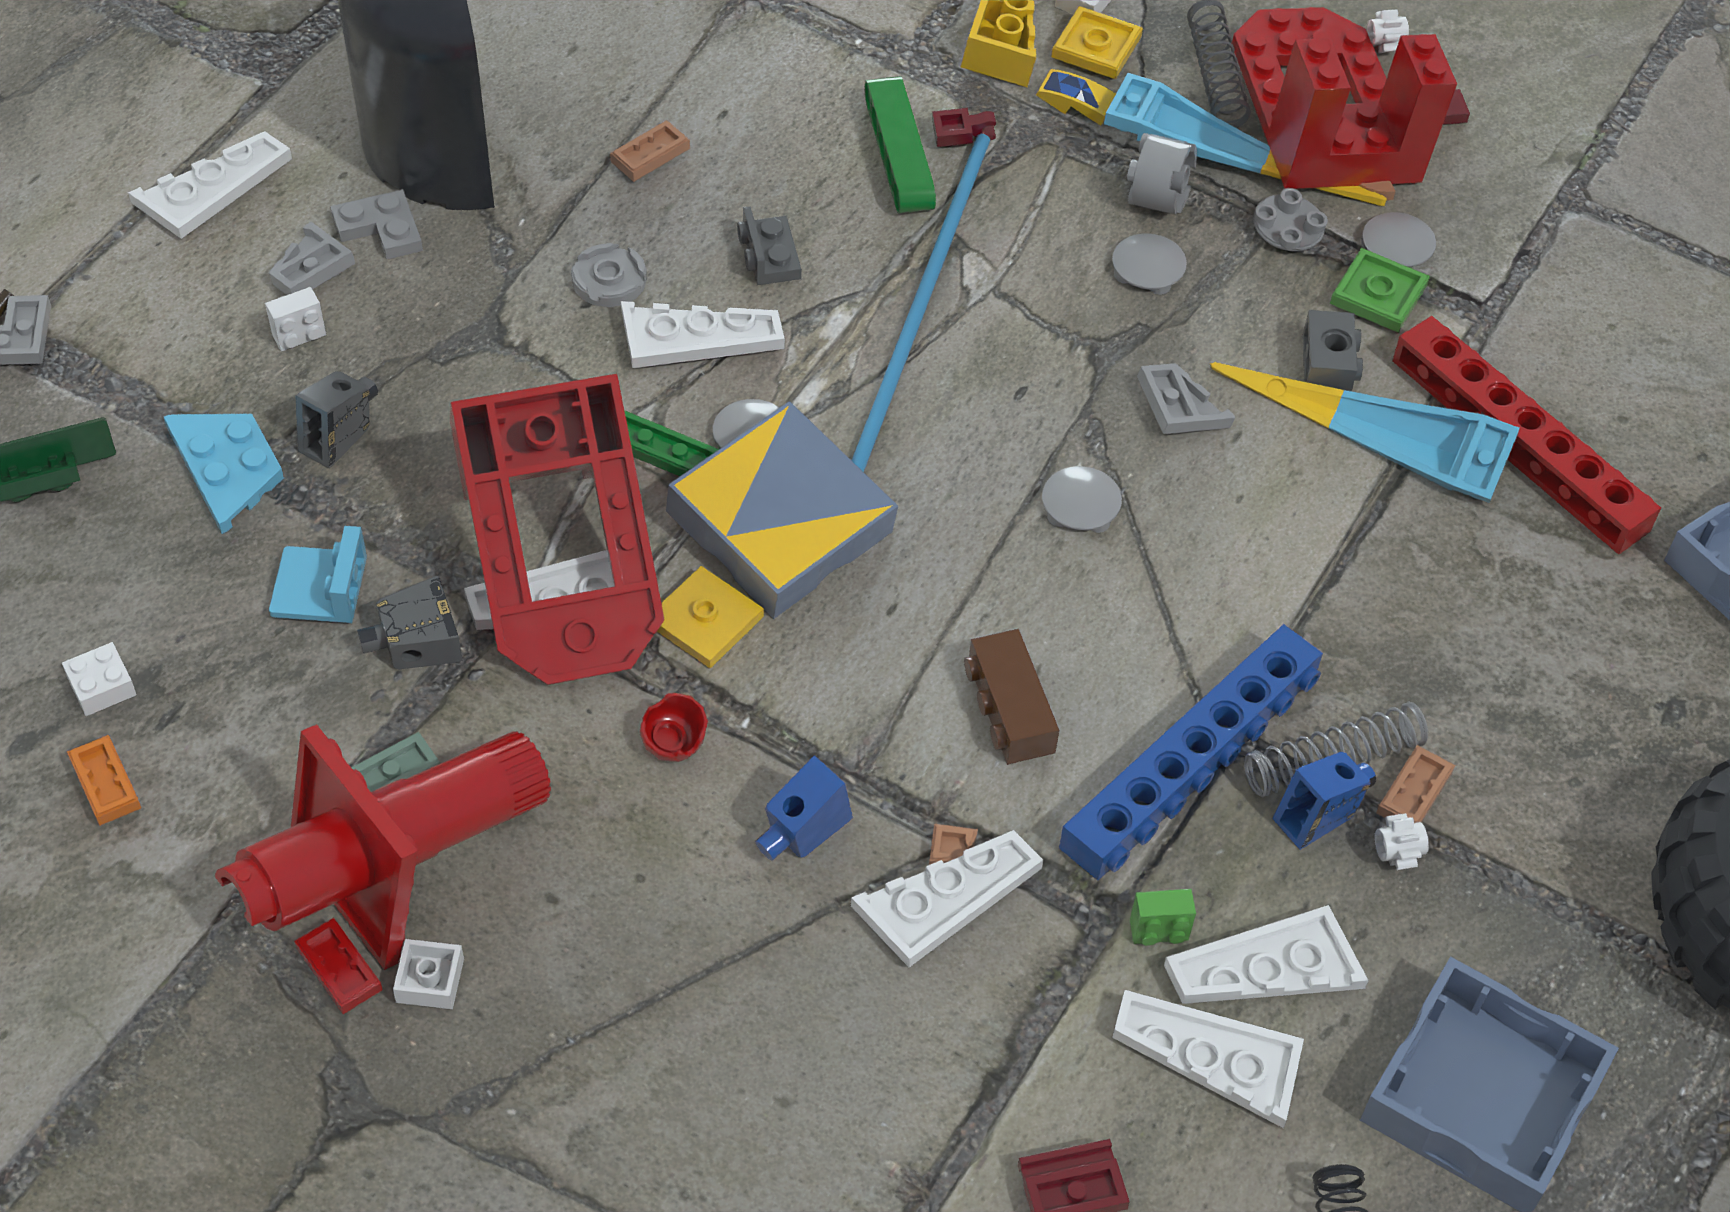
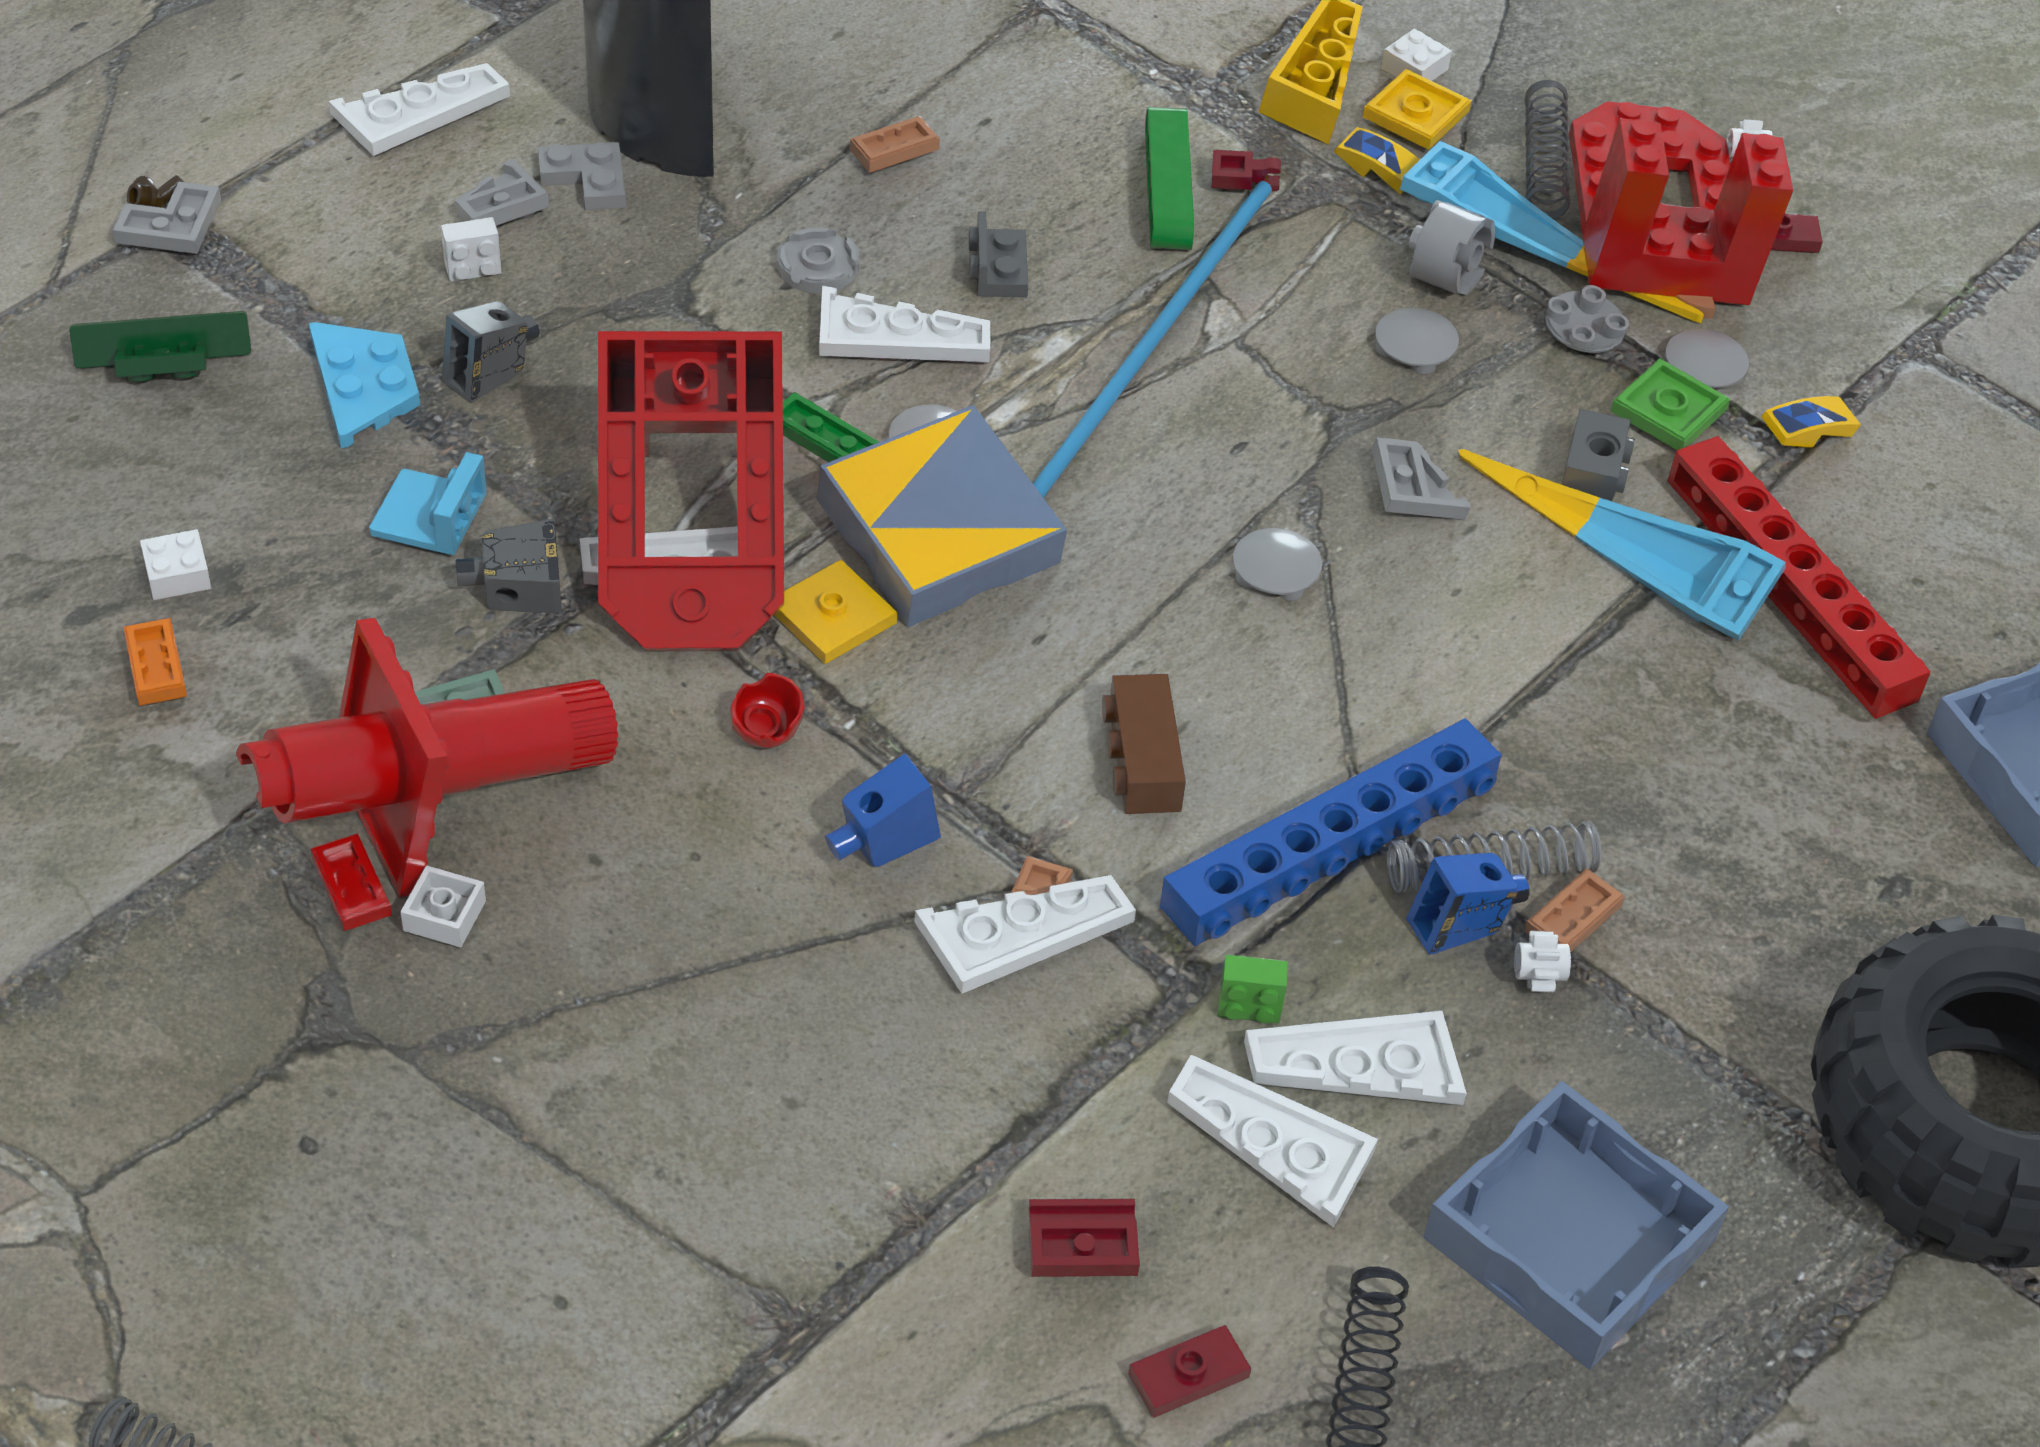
camera: 10 degrees right, 5 degrees down
(1497, 284) = (1807, 419): none -> yellow slope

